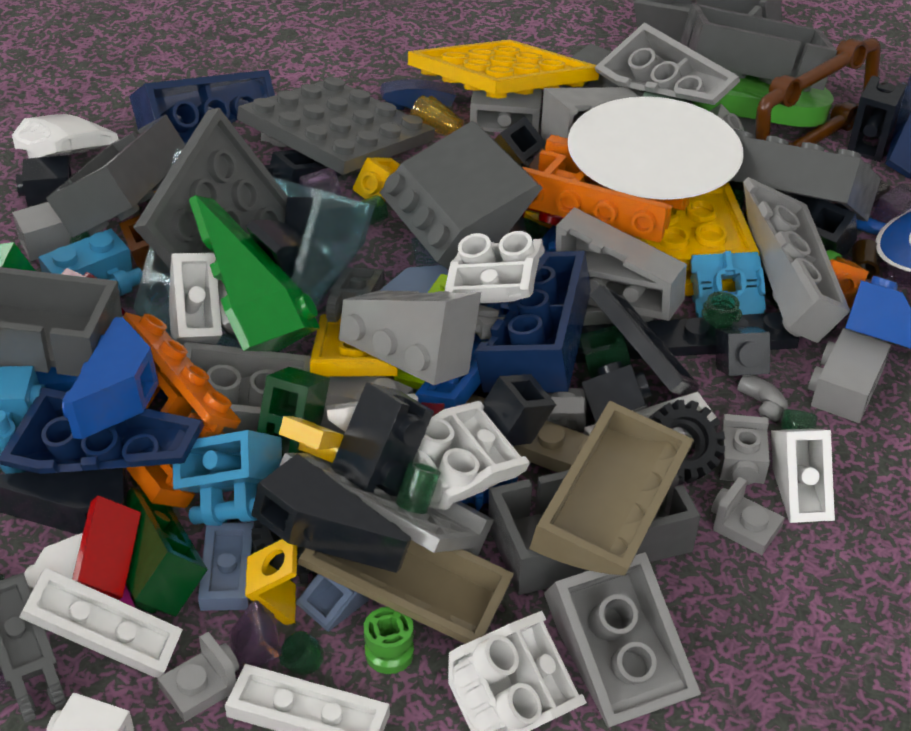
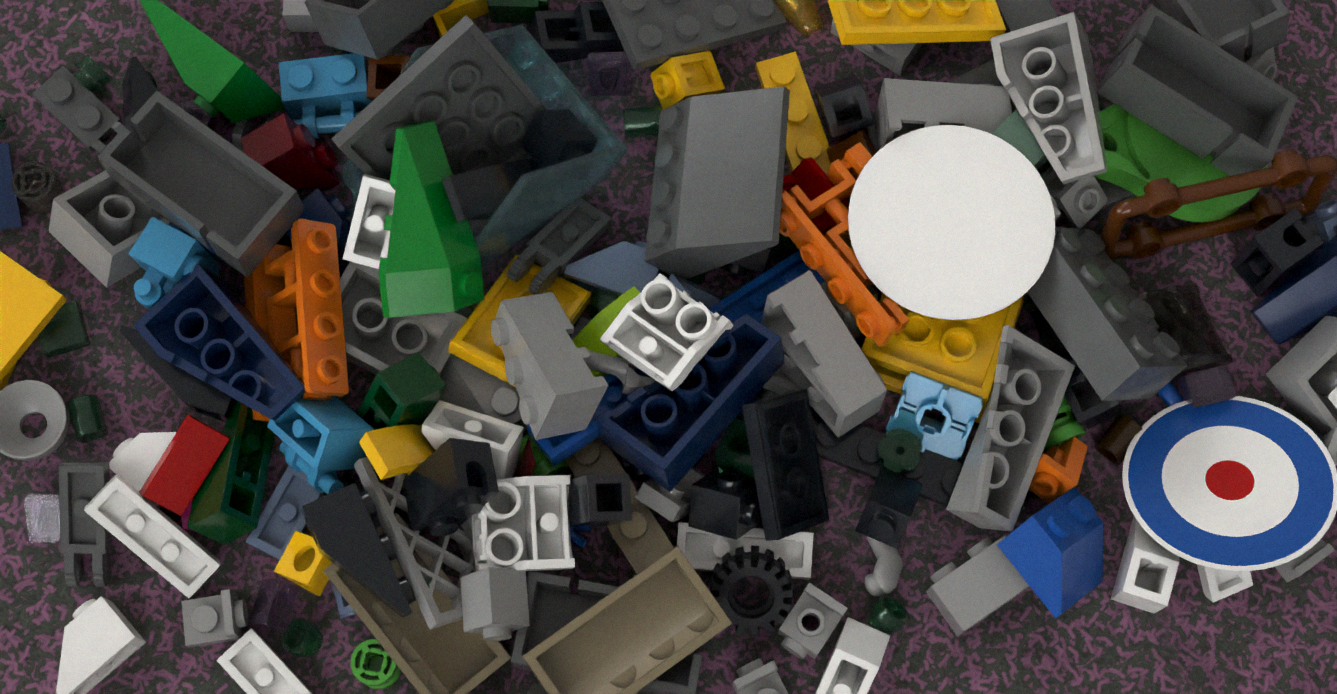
camera: 30 degrees right, 30 degrees up
(112, 383) = (247, 306): blue slope -> none
(417, 487) = (458, 548): clear green hinge -> none
(476, 515) = (494, 602): none -> light grey brick

